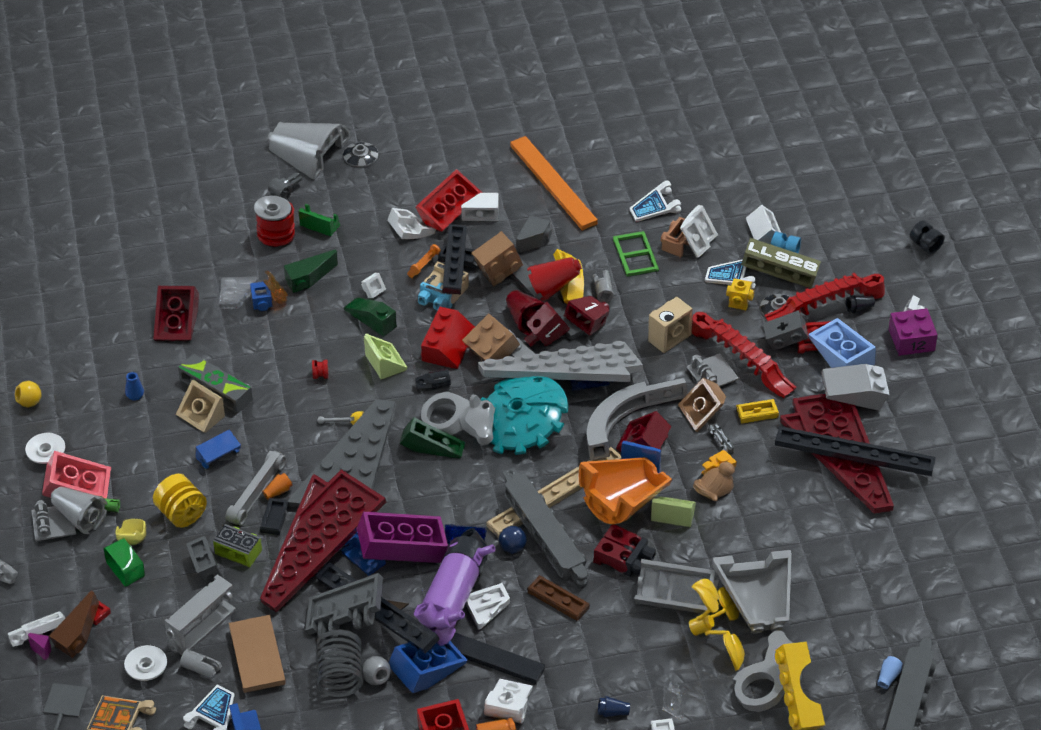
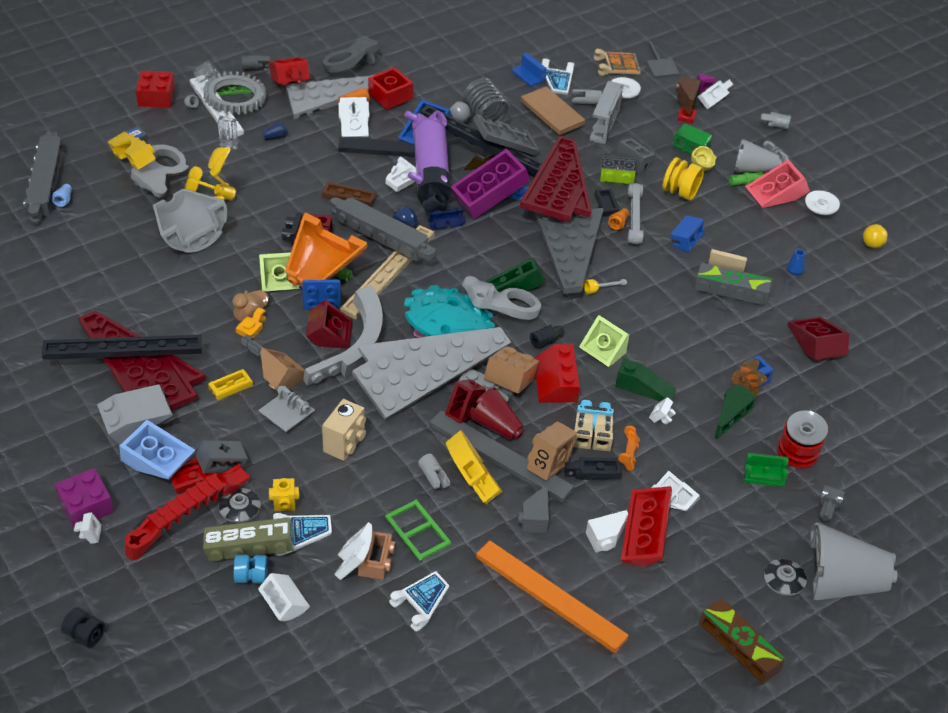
camera: 155 degrees right, 0 degrees up
(234, 291) = (787, 379): clear wing -> none
(320, 369) = (653, 318): red wheel -> none
(428, 117) = (742, 640): none -> reddish brown brick
(454, 259) = (596, 445): black tile -> none
(553, 276) = (486, 432): red cone -> none
(587, 313) = (432, 427): dark red torso -> none
(670, 586) = (256, 205): door -> none
(770, 373) = (306, 443): red piece -> none

